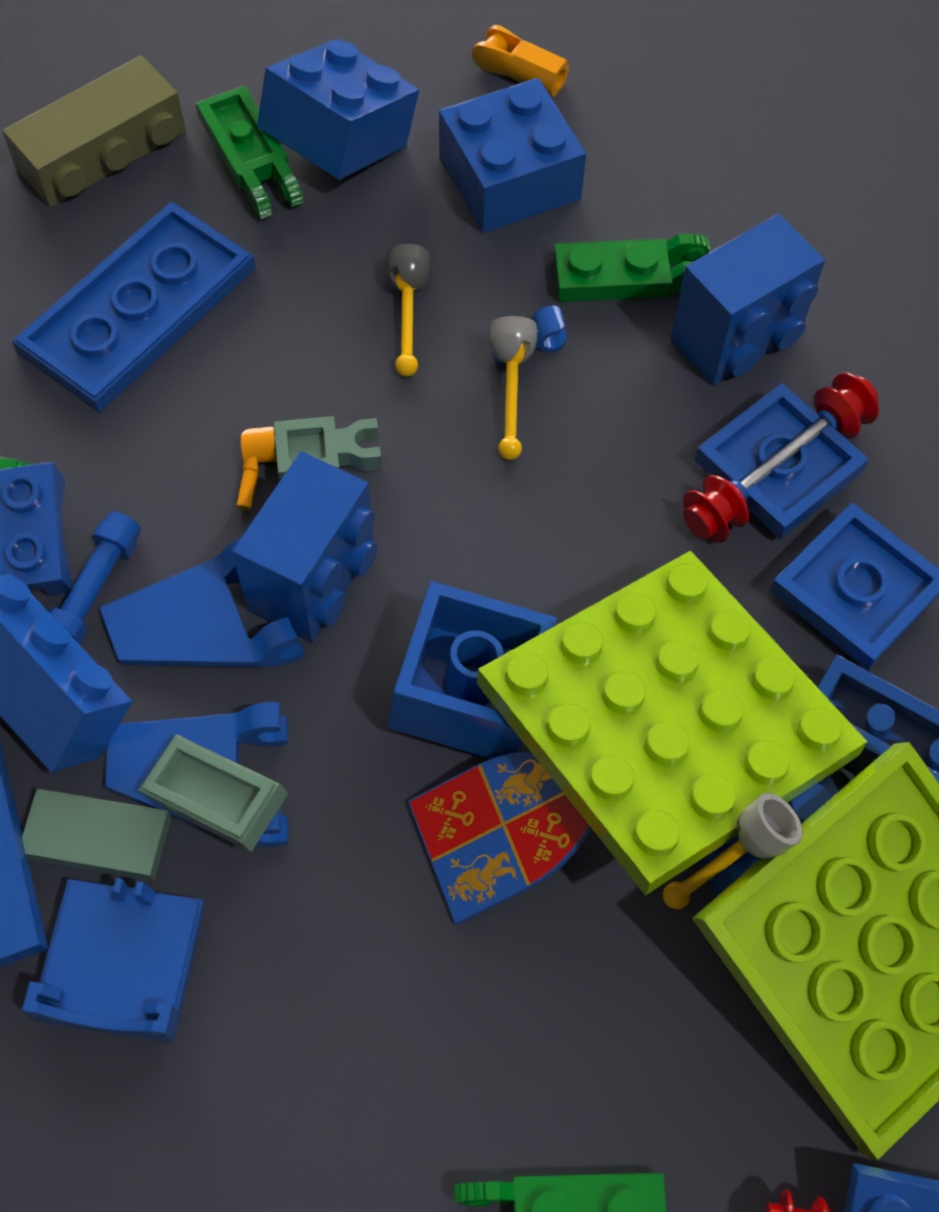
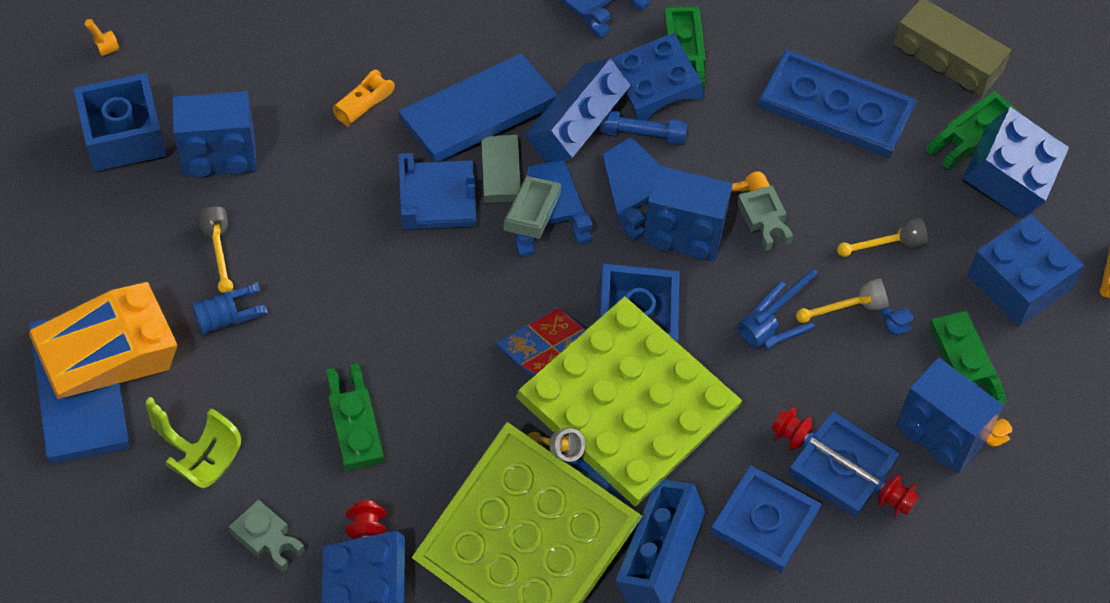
camera: 75 degrees right, 5 degrees down
(525, 503) = (760, 325): none -> blue plant

